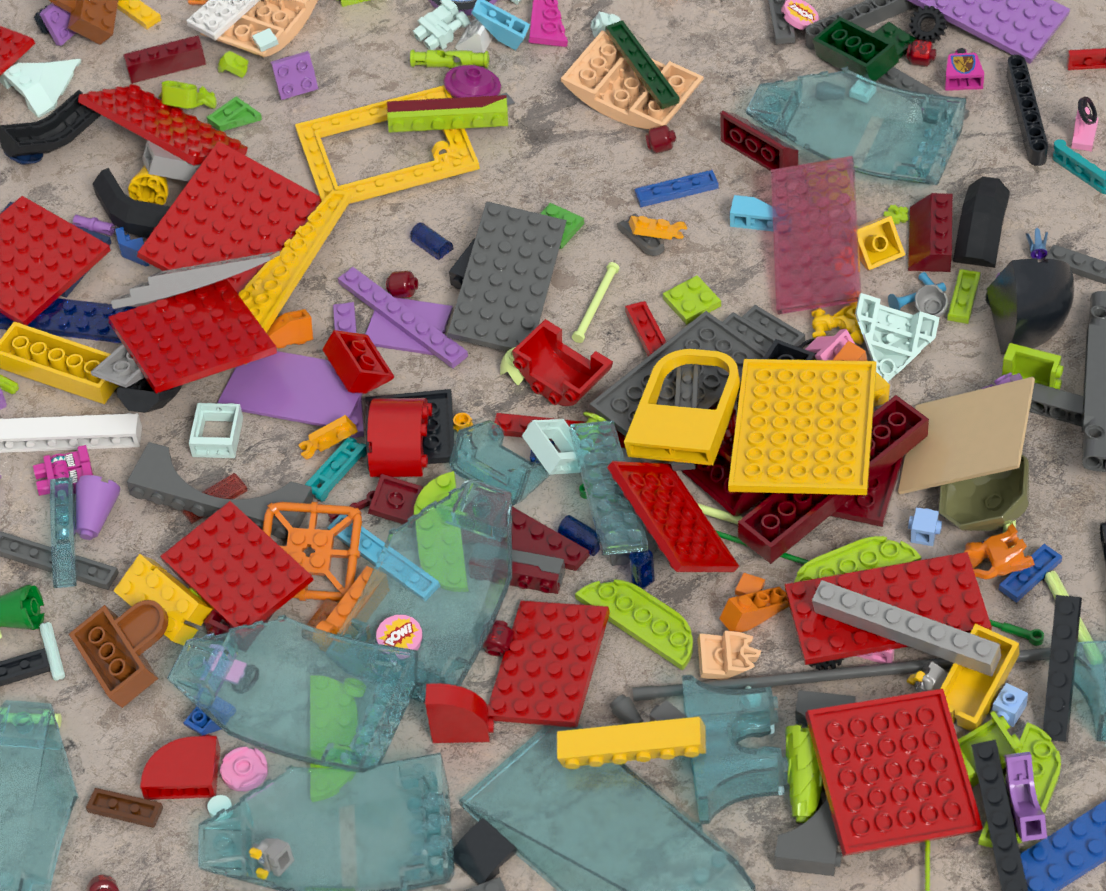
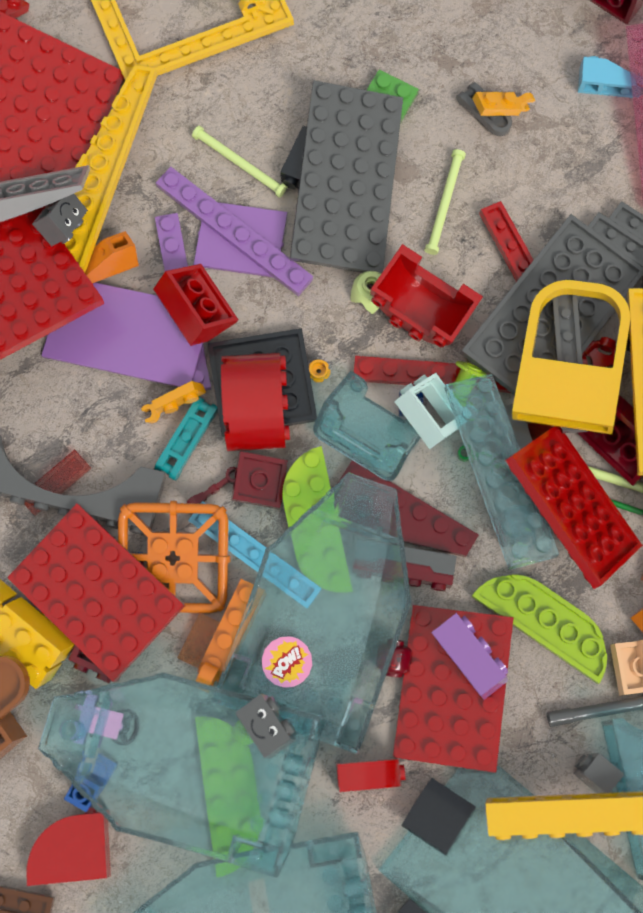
camera: 10 degrees left, 25 degrees up
(214, 446) = (45, 417): light aqua window -> none
(218, 803) = (117, 893): light aqua tile -> none
(244, 769) = (134, 850): bright pink tile -> none
(249, 287) = (60, 219): none -> dark grey brick
(368, 653) = (266, 725): none -> dark grey brick
(402, 284) = (228, 187): dark red head -> none
(430, 240) = (252, 125): clear blue brick -> none
(448, 288) = (199, 133): none -> yellowish green bar
(518, 755) = (438, 816): none -> black slope
(561, 622) = (471, 655): none -> medium lavender brick
(580, 534) = (467, 513): clear blue brick -> none
(625, 710) = (545, 744): dark grey cone -> none
(642, 568) = (540, 569): clear blue brick -> none
(676, 188) = (514, 44): blue tile -> none
(691, 299) = (549, 193): lime plate -> none

